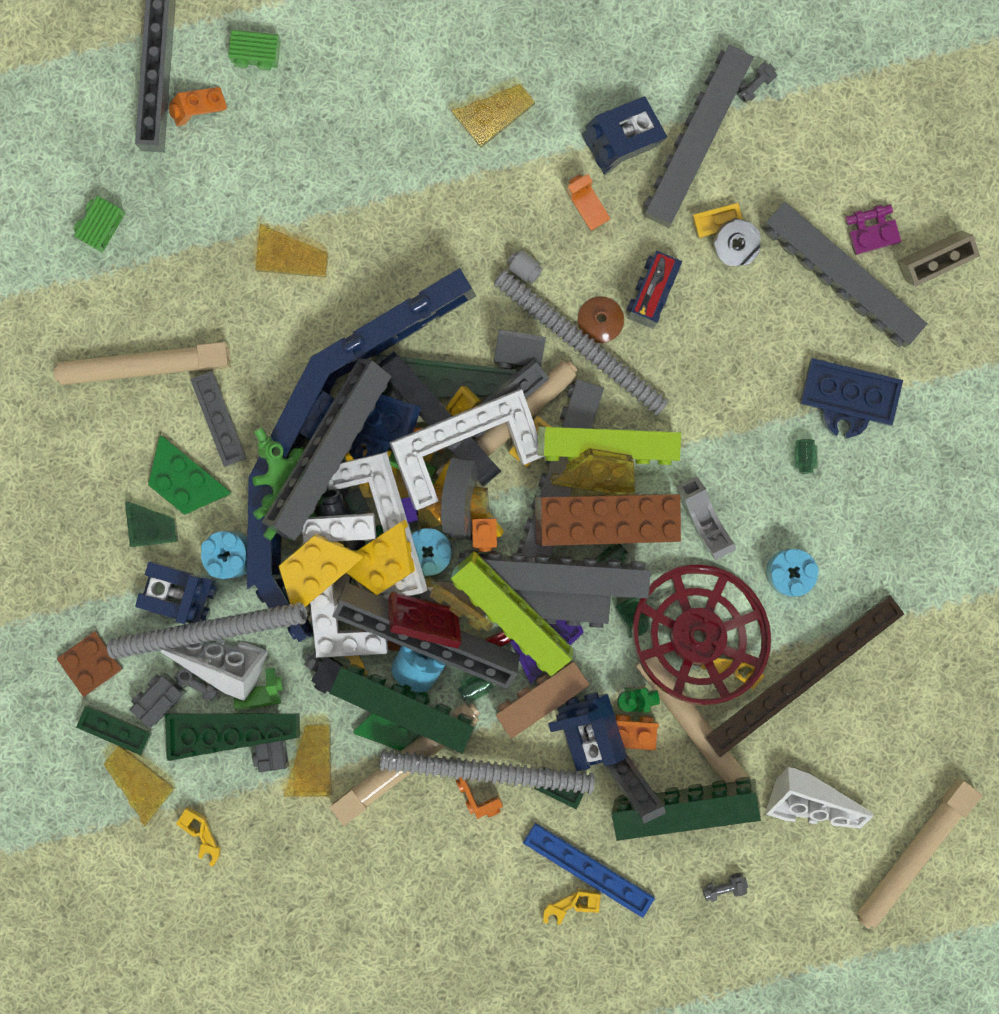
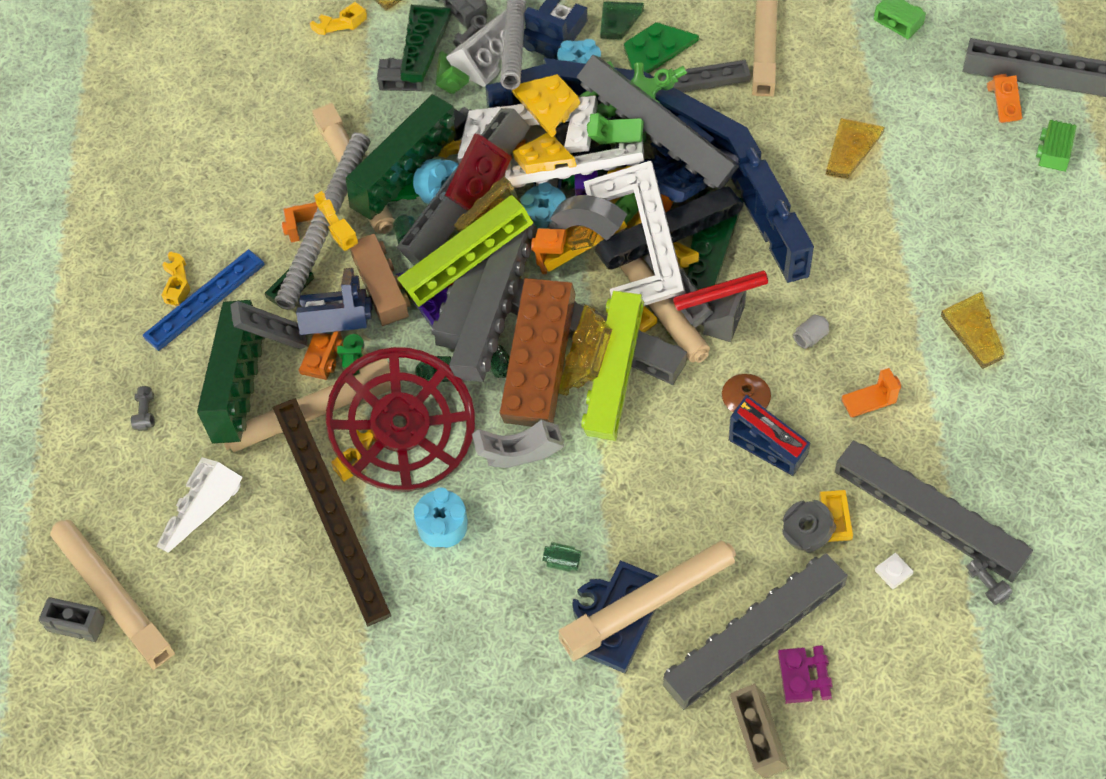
camera: 105 degrees right, 30 degrees down
(313, 764) = (371, 104): clear yellow wing -> none
(347, 489) = (614, 131): none -> bright green bracket
(502, 752) = (339, 229): none -> yellow piece
(519, 352) = (720, 290): none -> red axle
(580, 342) = (723, 369): light grey piece -> none
(611, 142) = (943, 409): dark blue brick -> none
(760, 164) = (894, 571): none -> white plate
(883, 416) = (588, 632): none -> tan brick
(955, 877) = (72, 619): none -> dark grey brick

